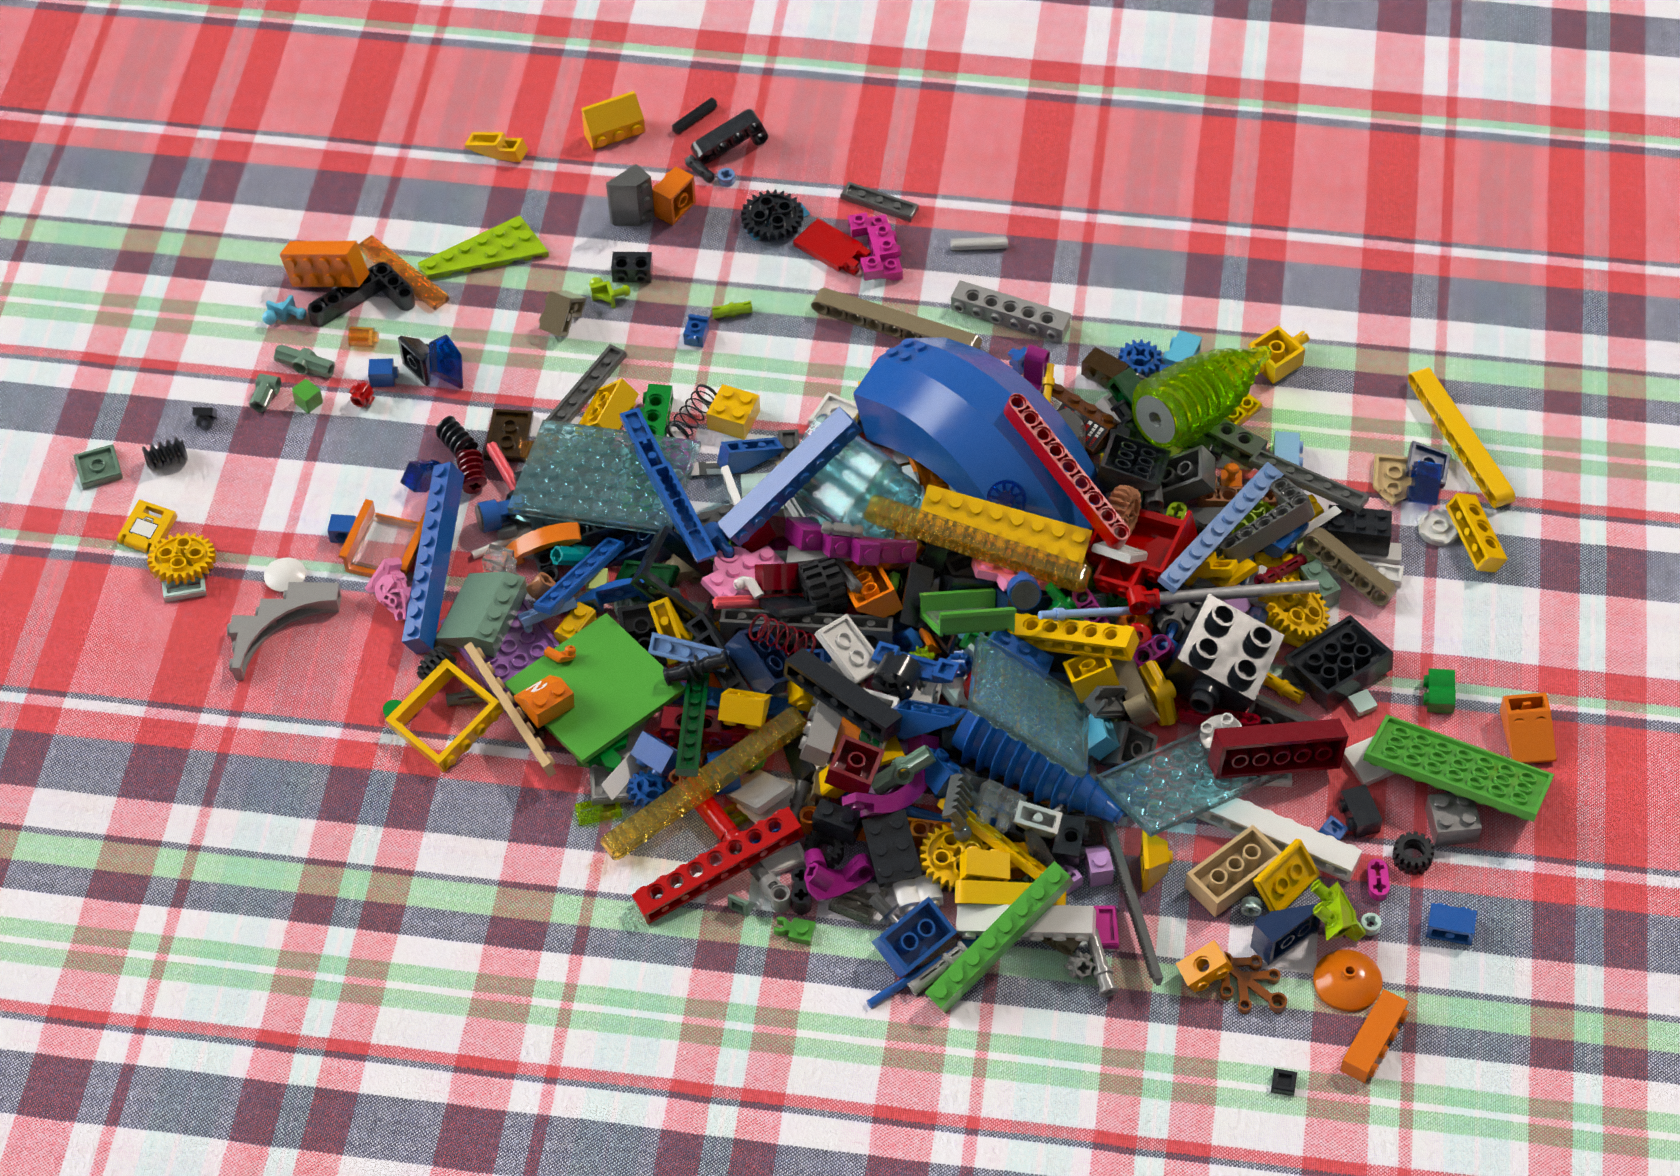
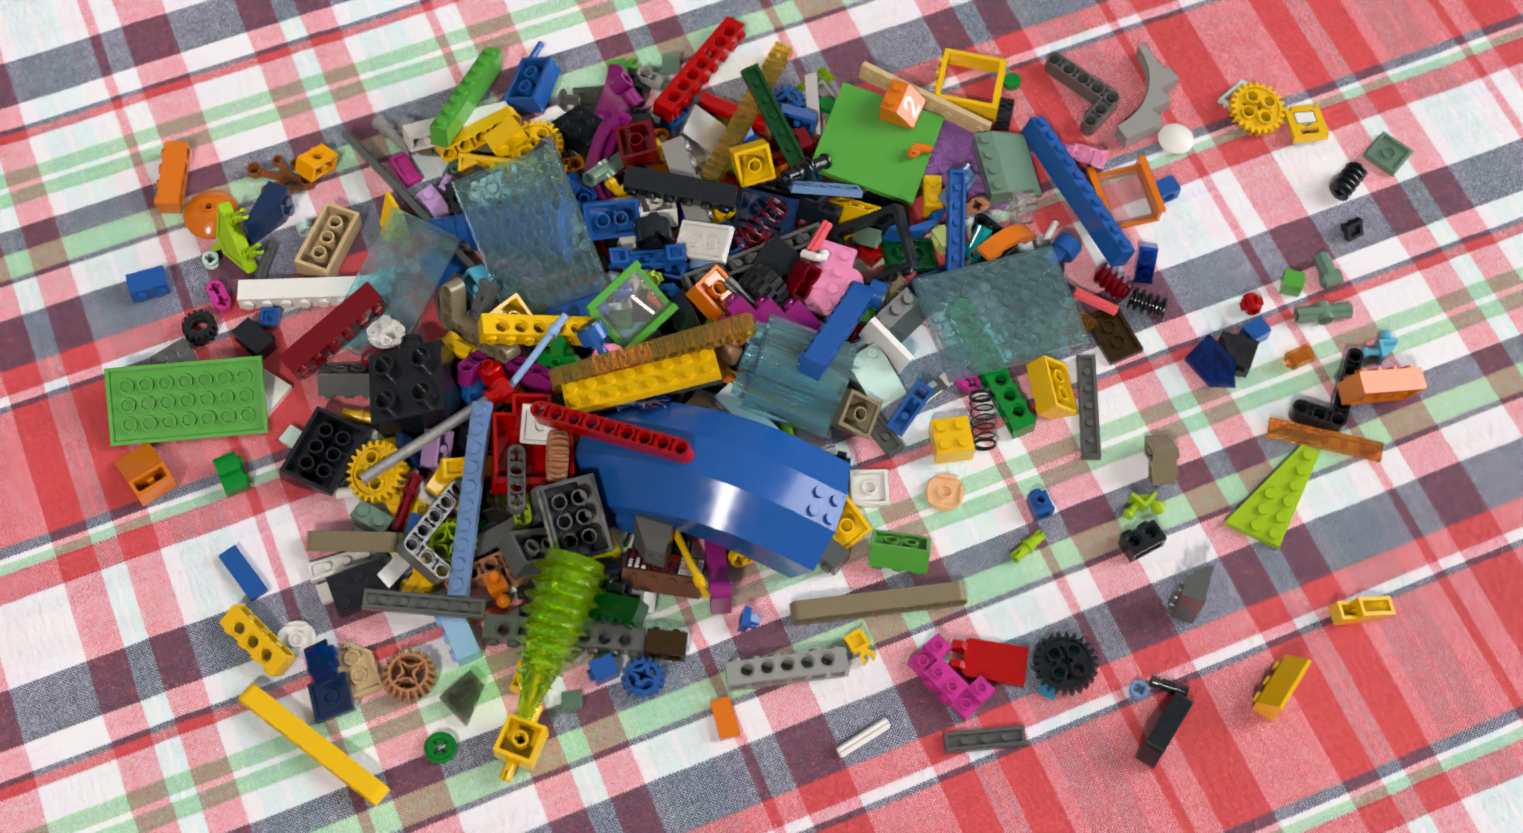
camera: 145 degrees right, 10 degrees up
(323, 636) = (1088, 87): none -> dark grey beam
(667, 486) = (938, 306): blue slope -> none
(674, 195) = (1162, 627): orange brick -> none
(694, 115) = (1221, 748): black axle -> none
(770, 382) = (944, 492): none -> light nougat tile
(842, 529) = (765, 310): light grey axle -> none
(846, 351) = (899, 551): none -> bright green slope
(935, 303) = (859, 643): none -> yellow plate
(935, 971) = (500, 85): light grey pin -> none
(1086, 306) = (725, 718): none -> orange tile
(1169, 514) = (513, 479): none -> dark grey beam
(1181, 347) = (607, 703): medium azure brick -> none
(1283, 1082) = (226, 123): black tile -> none
(1286, 876) = (286, 253): yellow tile -> none
(1307, 415) = (463, 696): none -> clear smoke wing
(1309, 897) = (266, 260): none -> dark grey axle
(1348, 449) = (400, 661): none -> nougat gear
(1351, 383) = (440, 738): none -> green gear
(1465, 603) = (243, 573): none -> blue tile

